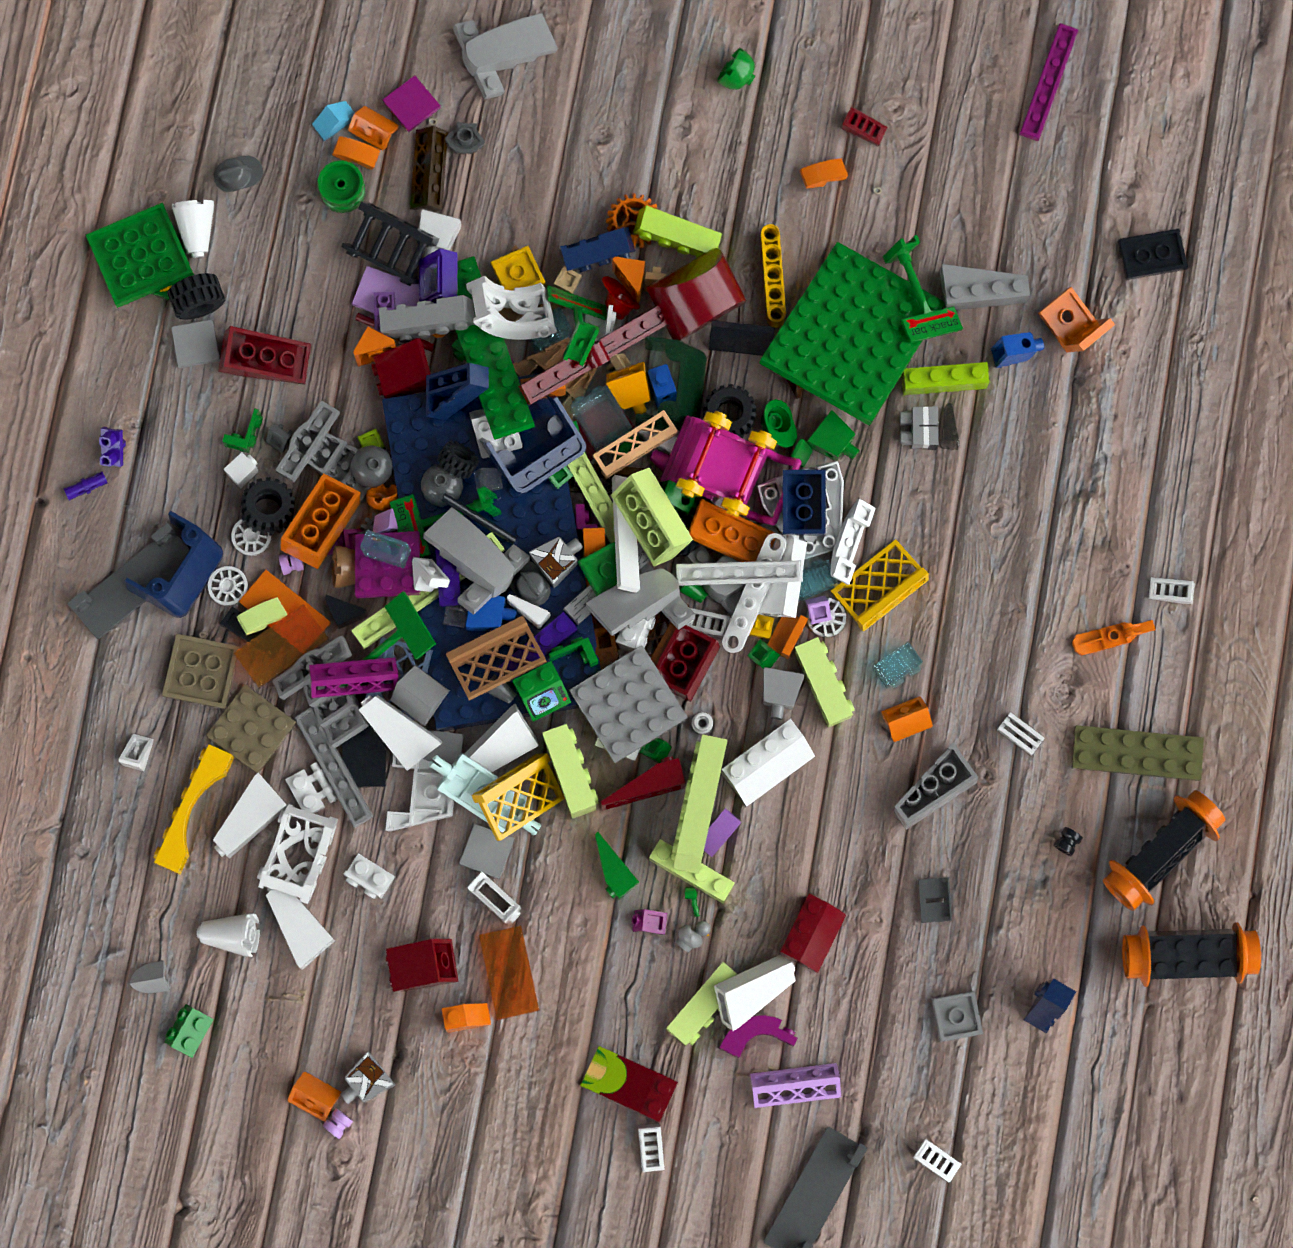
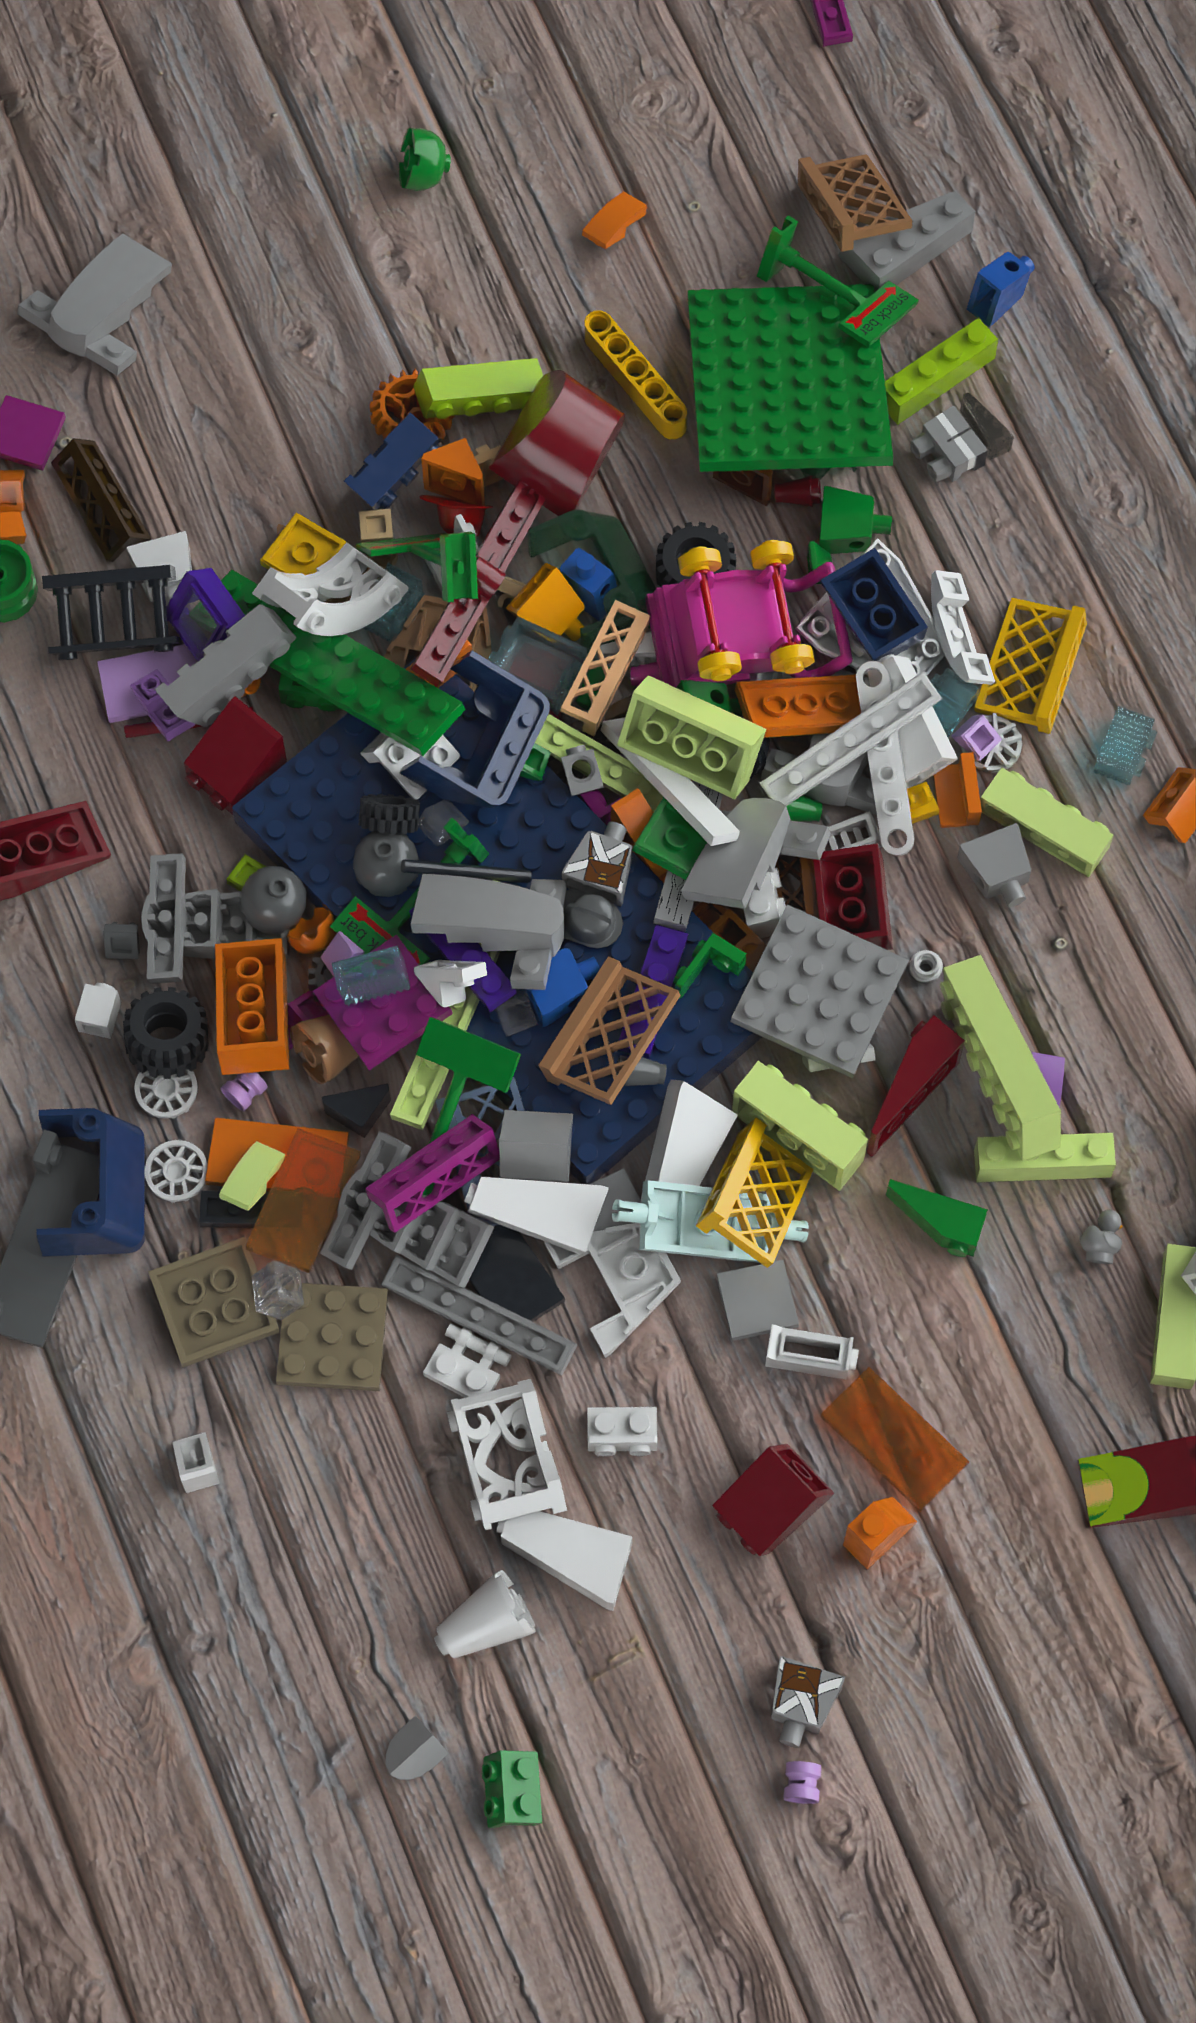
camera: 30 degrees left, 10 degrees down
(212, 768) = (333, 1557): yellow arch -> none
(235, 687) = (277, 1290): none -> clear brick
(237, 442) = (68, 978): green bracket -> none
(249, 817) = (408, 1447): white slope -> none
(314, 1096) = (745, 1768): orange panel -> none
(370, 345) = (173, 745): orange slope -> none
(454, 388) = (326, 725): dark blue wedge -> none
(465, 138) = (123, 436): dark grey animal -> none
(531, 612) = (621, 947): white slope -> none
(541, 691) = (696, 1039): green slope -> none
(578, 506) = (576, 785): none -> light grey brick
(649, 921) = (1033, 1256): magenta bracket -> none
(656, 750) = (891, 1036): green slope -> none
(691, 893) = (1064, 1187): green hand -> none
(740, 337) = (649, 466): black tile -> none
(763, 655) = (944, 835): green slope -> none
(768, 762) = (1047, 961): white slope -> none
(779, 423) = (757, 529): green piece -> none
(817, 404) = (801, 491): none -> dark red cone
(861, 117) = (618, 150): dark red slope -> none
(947, 244) = (831, 205): none -> medium nougat fence
(1081, 329) = (1062, 220): orange bracket -> none
(1152, 254) = (1085, 89): black tile -> none

